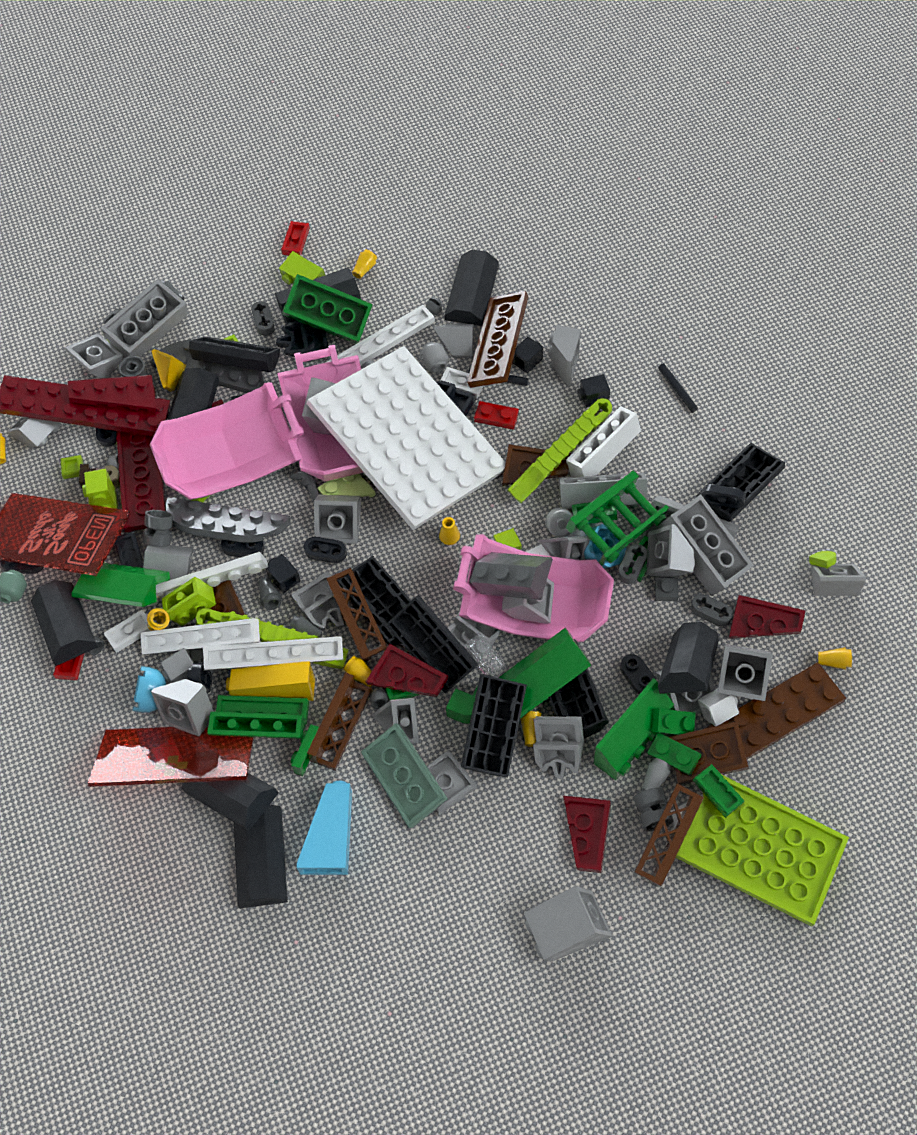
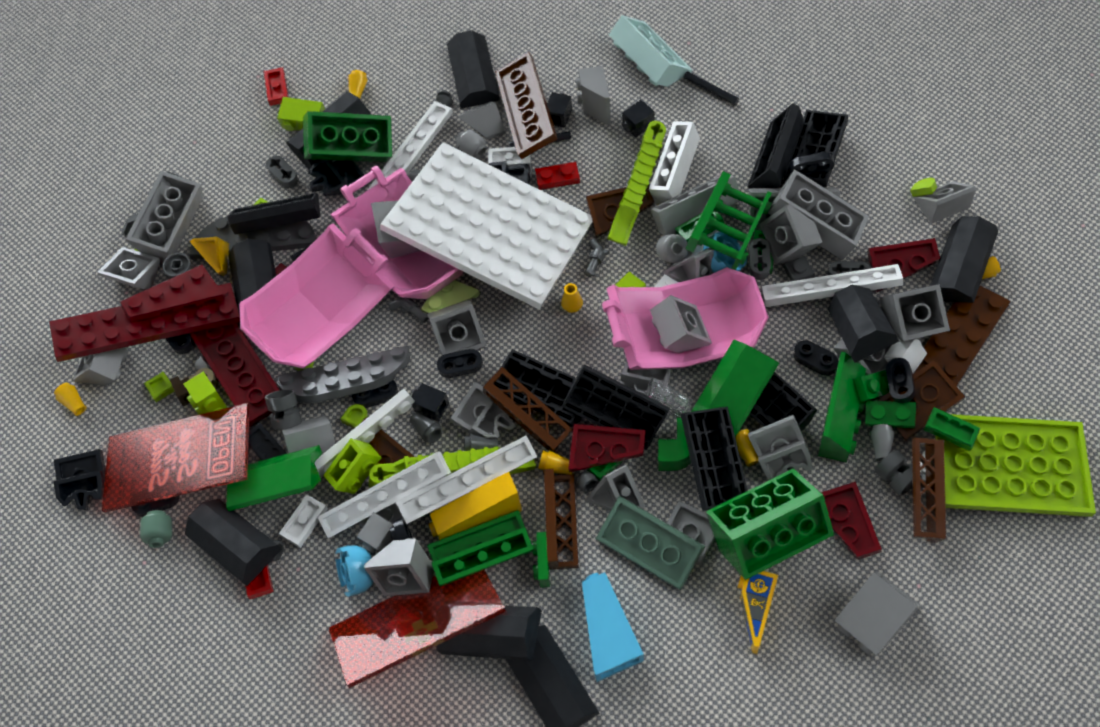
camera: 20 degrees left, 0 degrees up
(160, 616) = (331, 496): yellow cone -> none
(216, 557) = (354, 415): none -> lime tile
(470, 863) = (756, 602): none -> slope
(491, 503) = (596, 257): none -> dark grey piece
(510, 803) = (770, 523): none -> green brick
(511, 575) = (662, 311): dark grey slope -> none
(638, 331) = (648, 51): none -> light aqua slope
(681, 613) = (828, 285): none -> white plate
(694, 729) = (900, 382): none -> black plate
(704, 469) = (776, 149): none -> black piece
(820, 642) = (965, 258): none -> black piece

